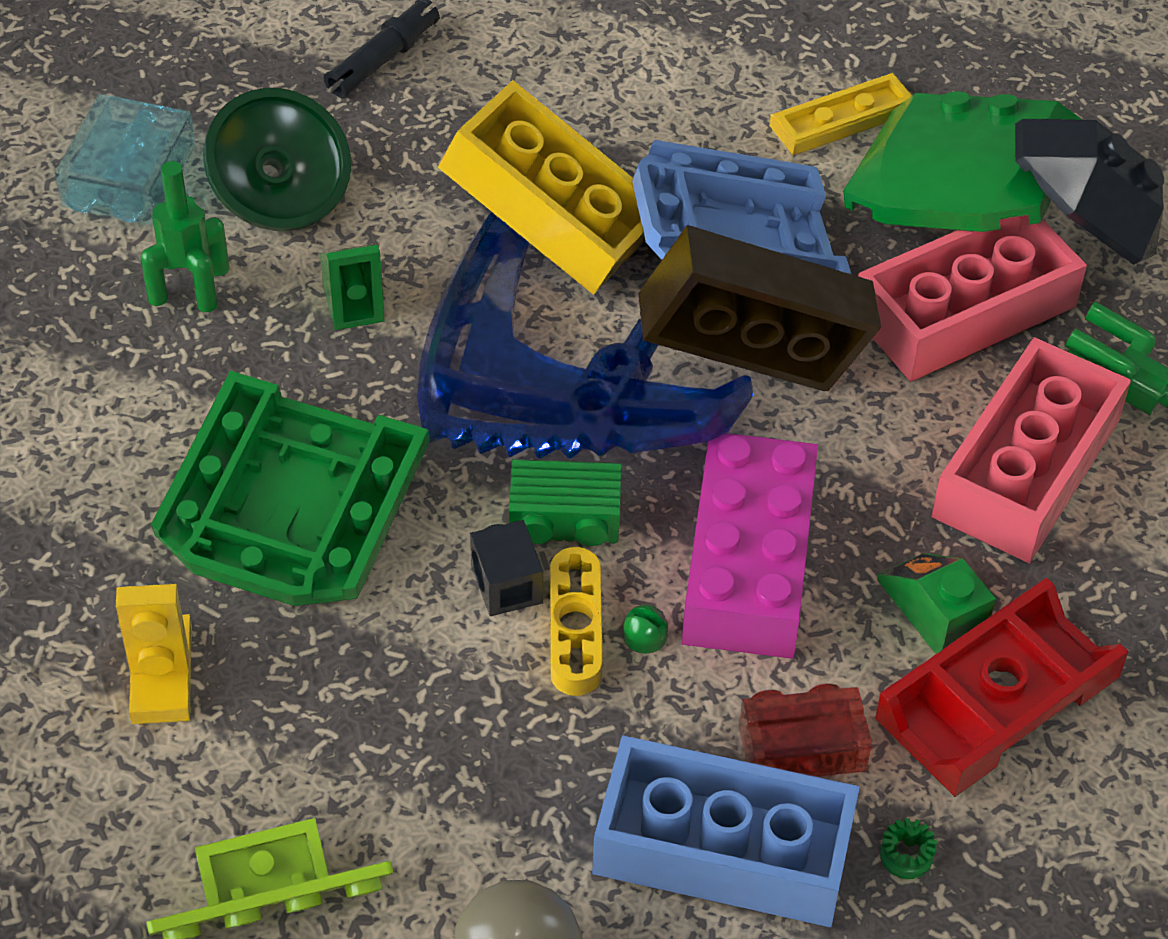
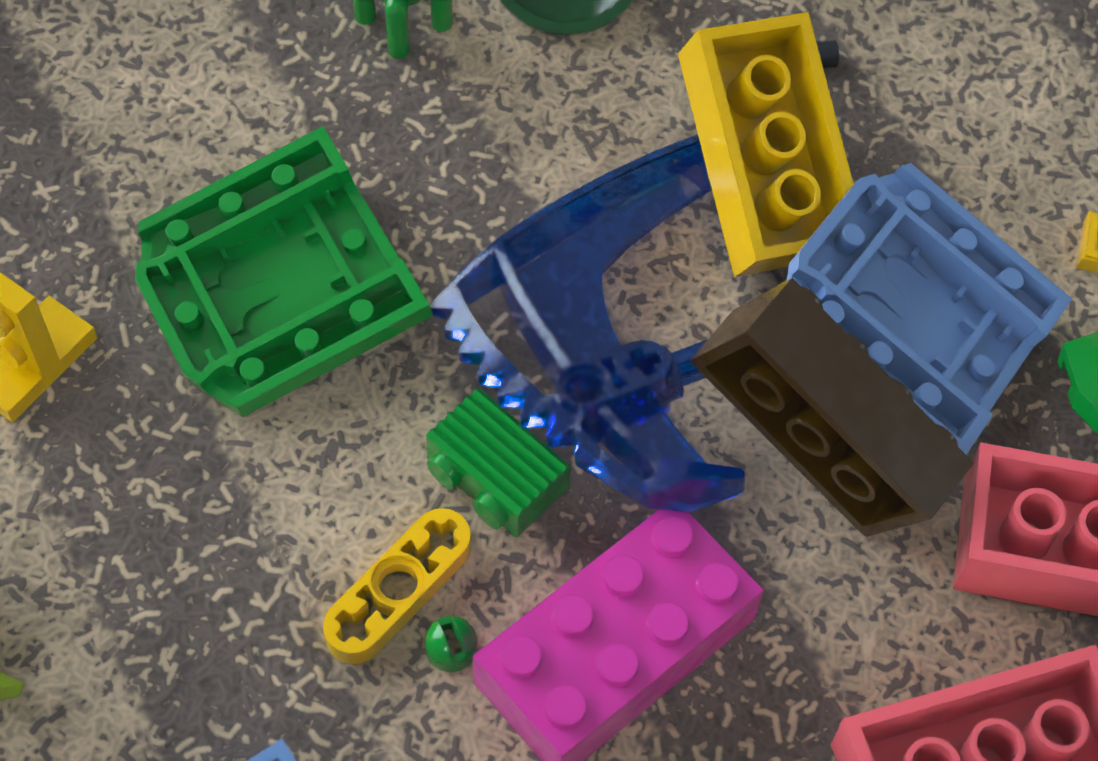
camera: 40 degrees right, 10 degrees up
(353, 286) = (517, 114): green slope -> none
(506, 567) = (381, 487): black brick -> none

